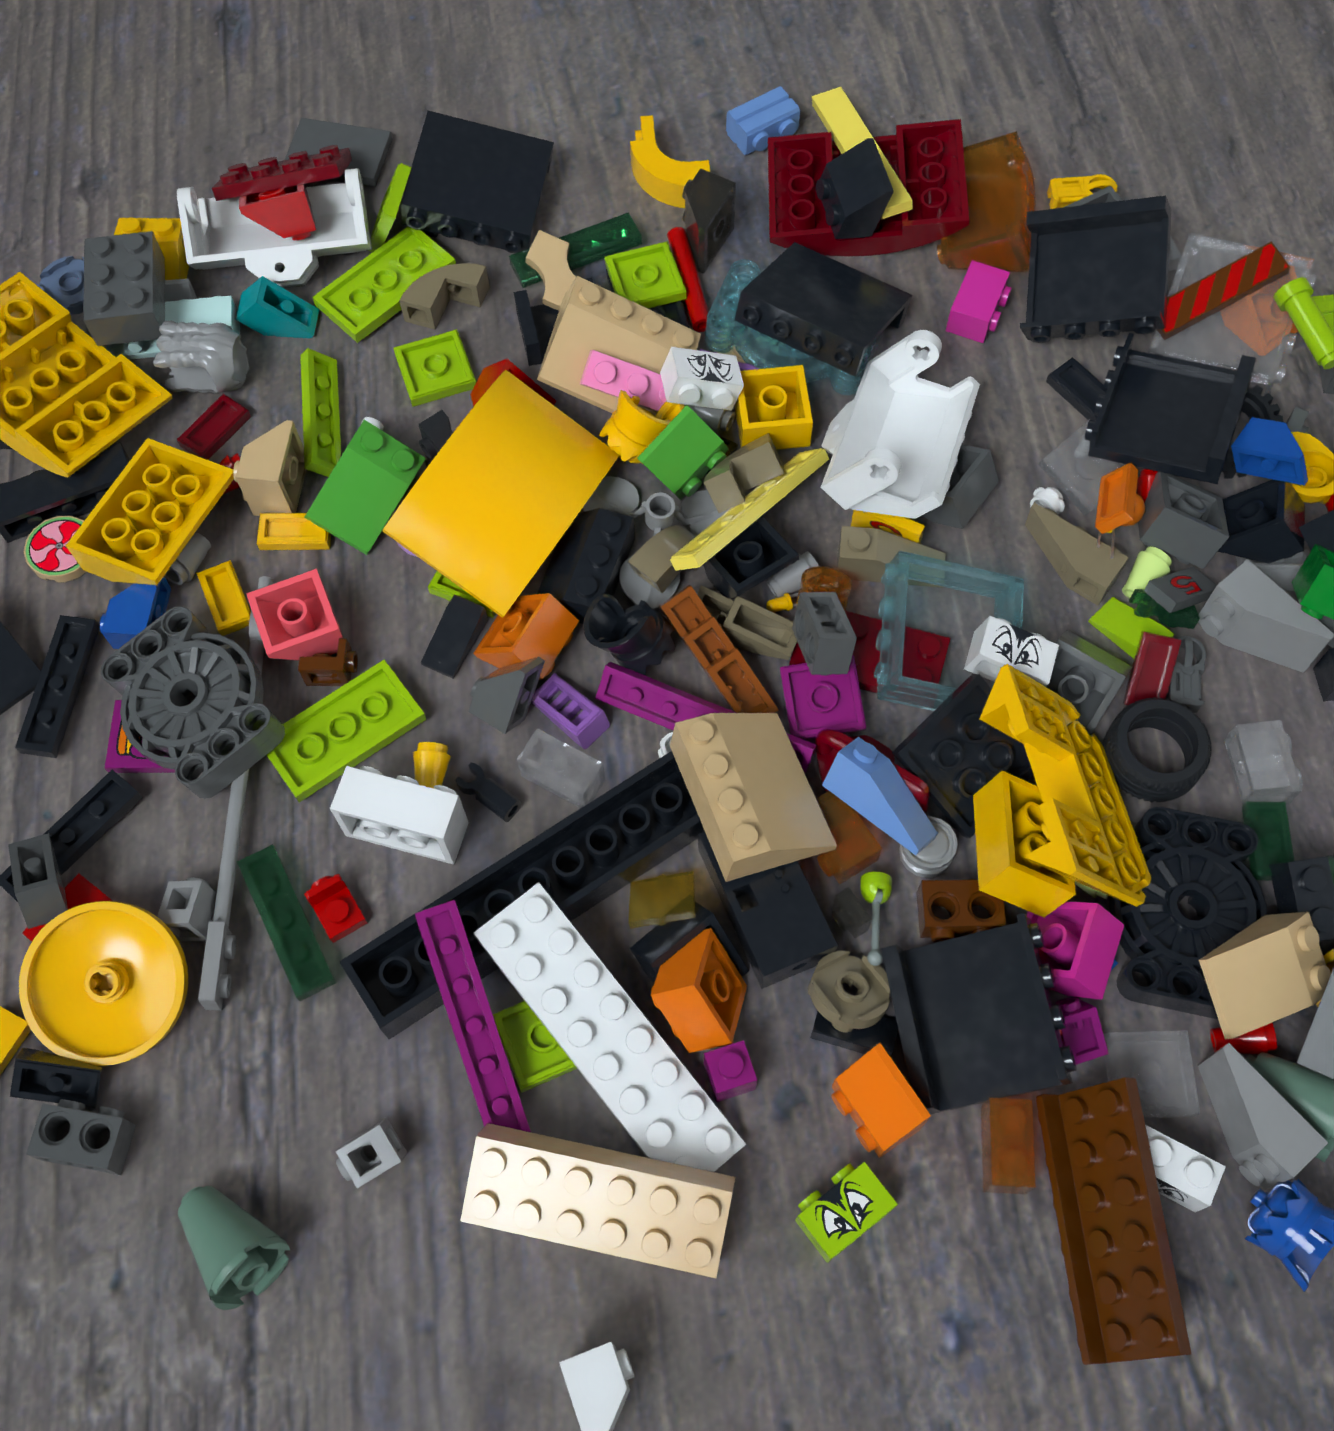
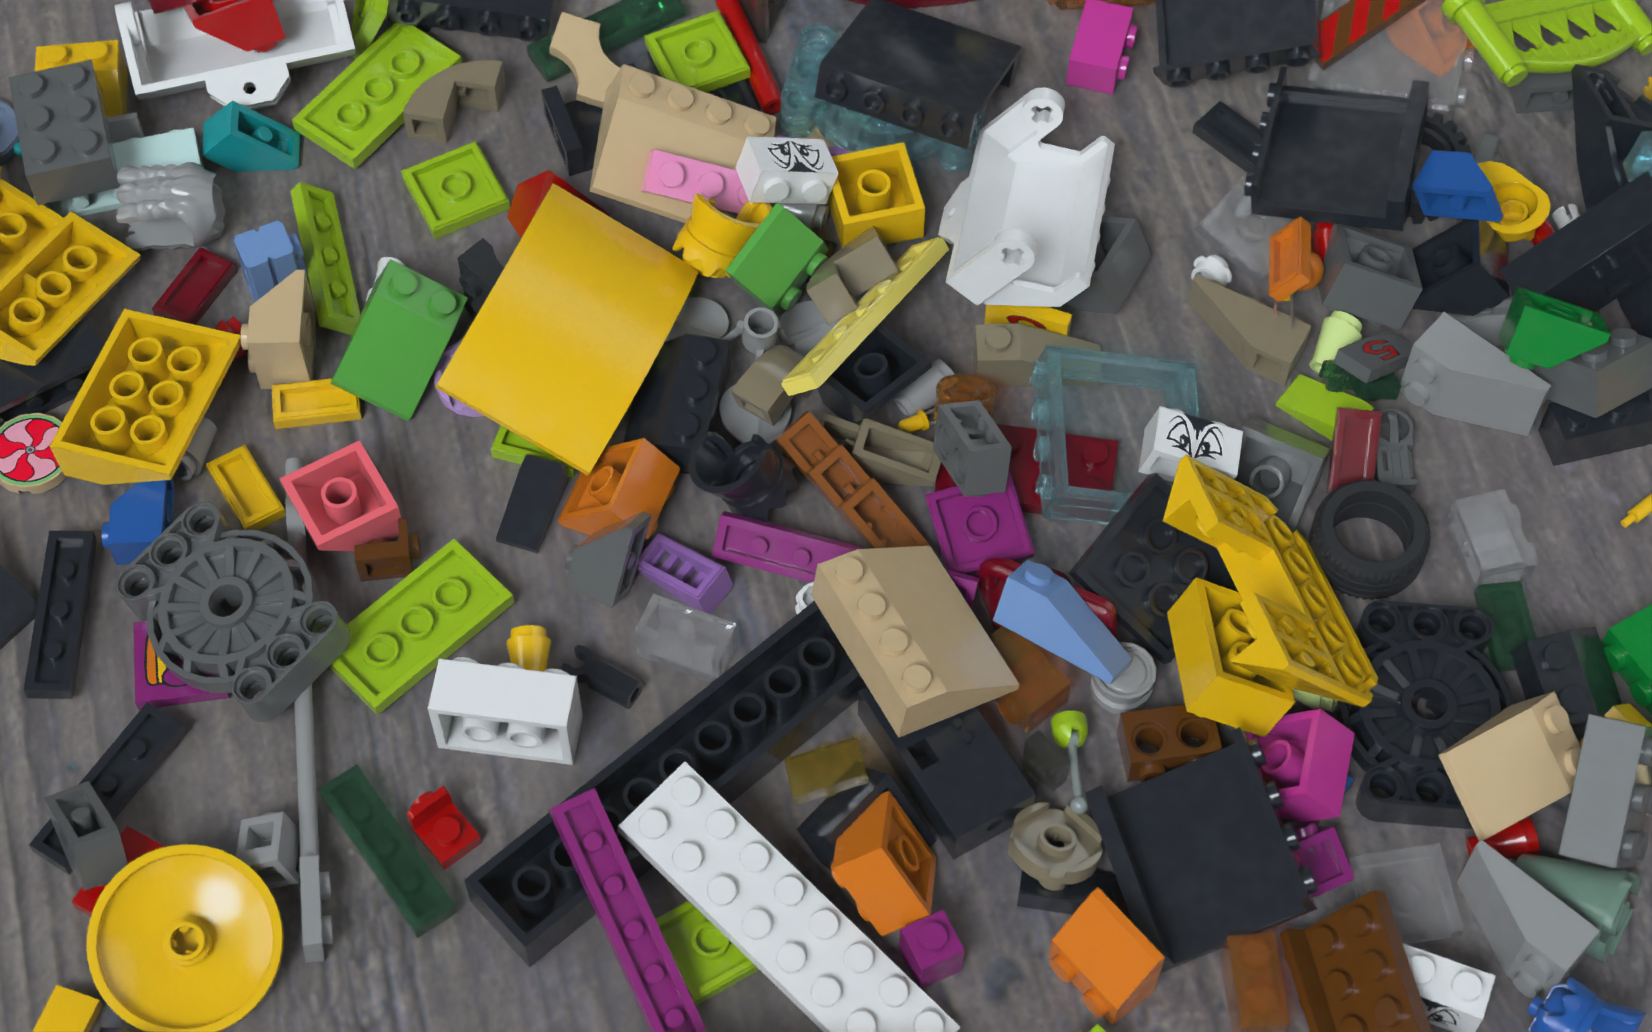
camera: 10 degrees left, 5 degrees down
(269, 406) = (268, 257): none -> medium blue brick

